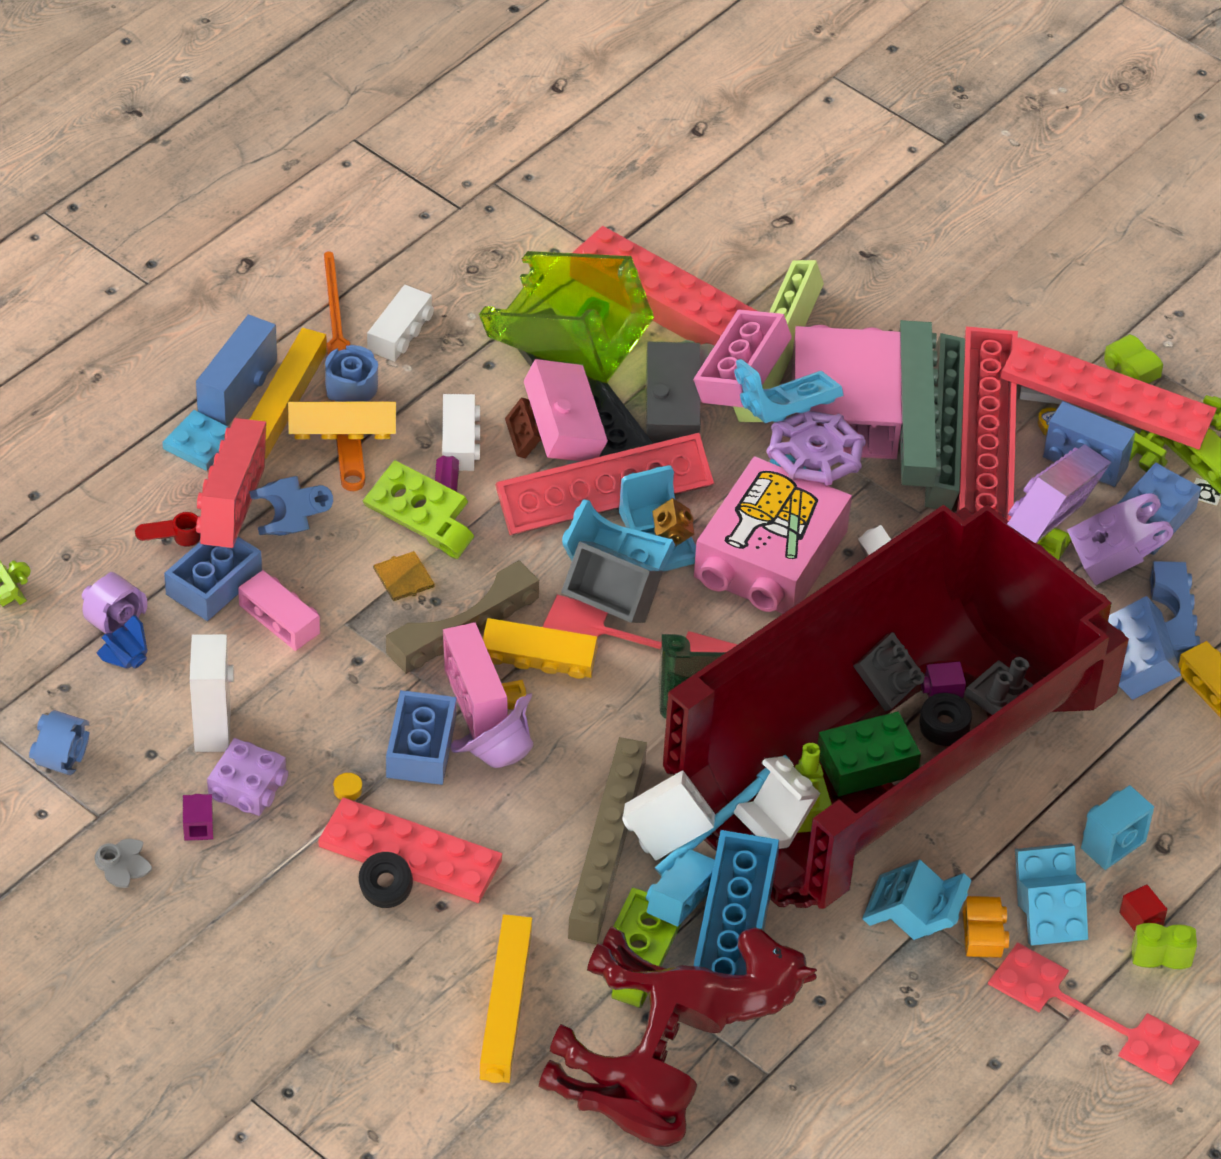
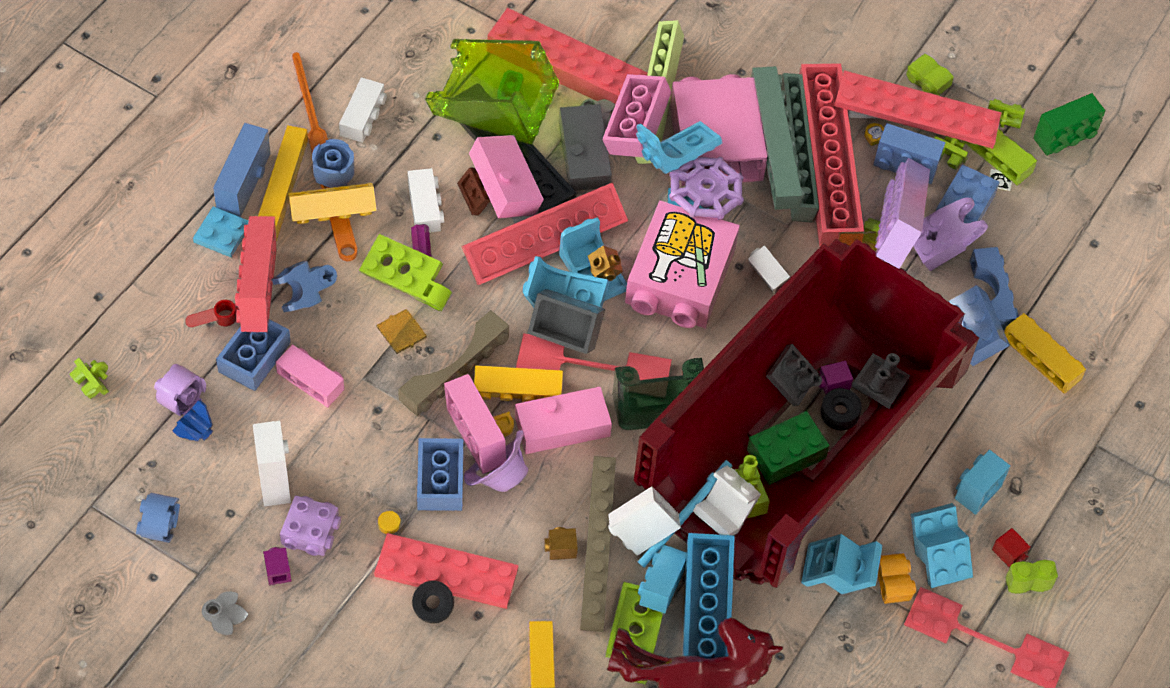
camera: 10 degrees left, 10 degrees up
(561, 835) = (561, 543): none -> pearl gold brick
(588, 696) = (563, 420): none -> bright pink brick

